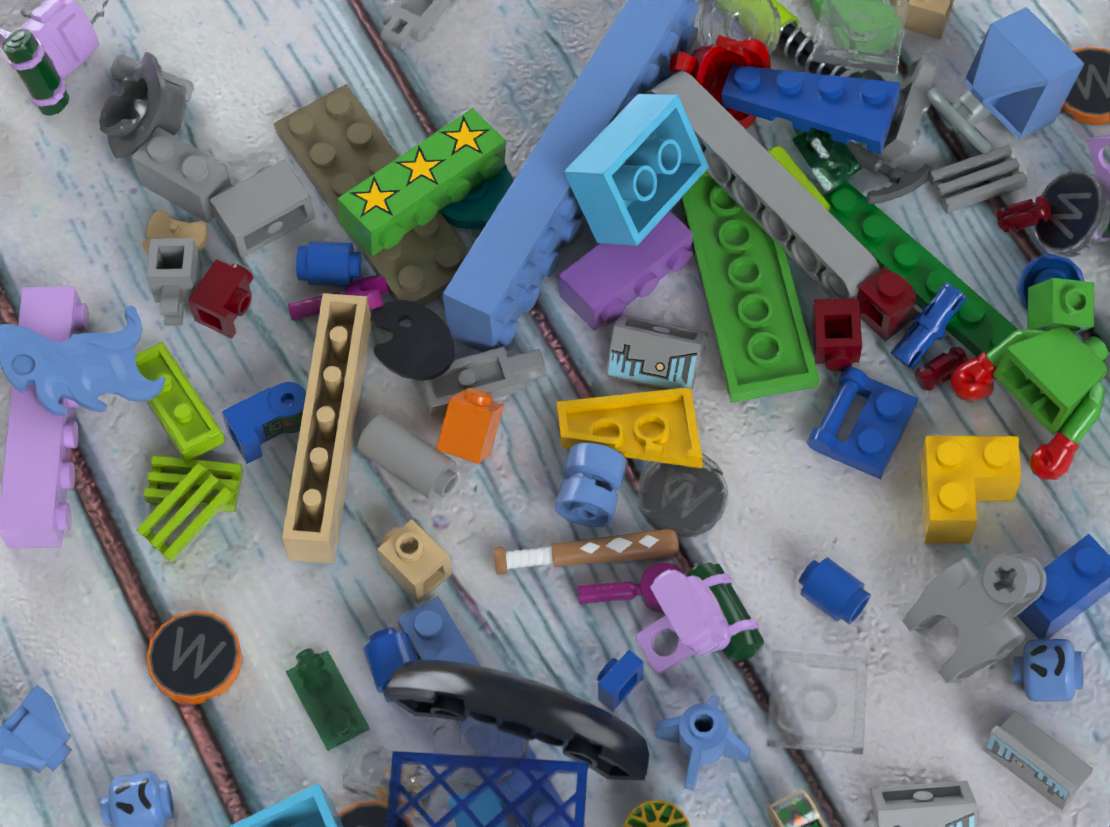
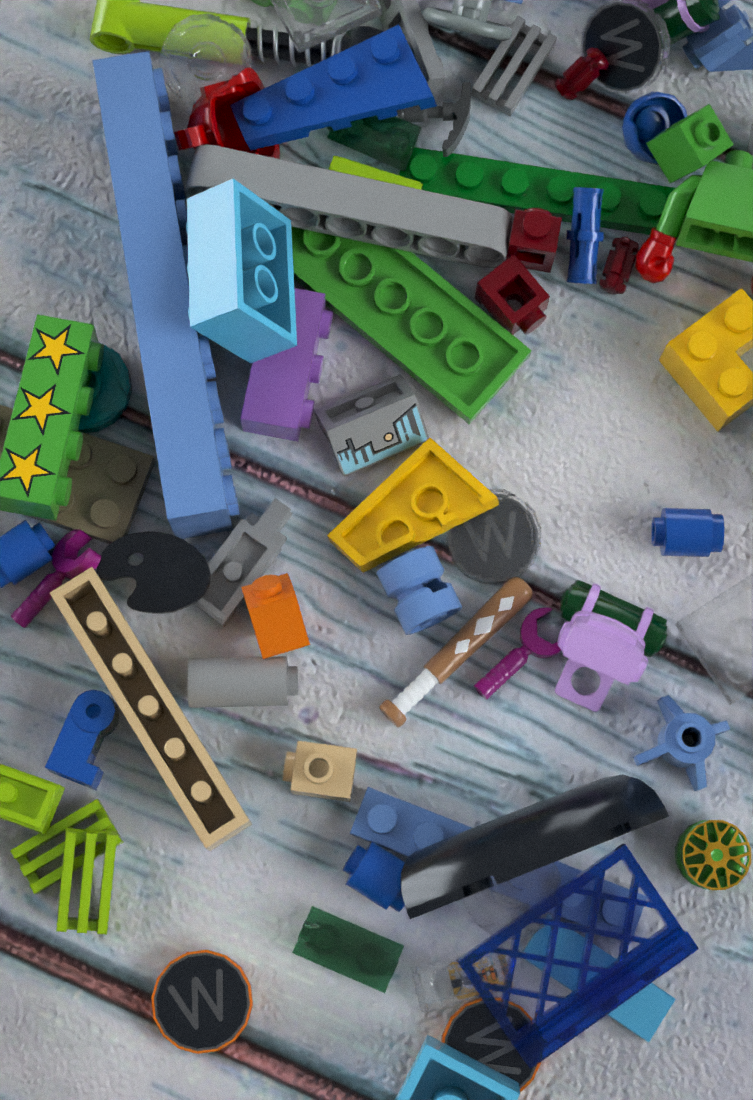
camera: 45 degrees left, 15 degrees up
(619, 679) = (577, 744): blue plate -> none
(876, 429) = (606, 358): blue plate -> none

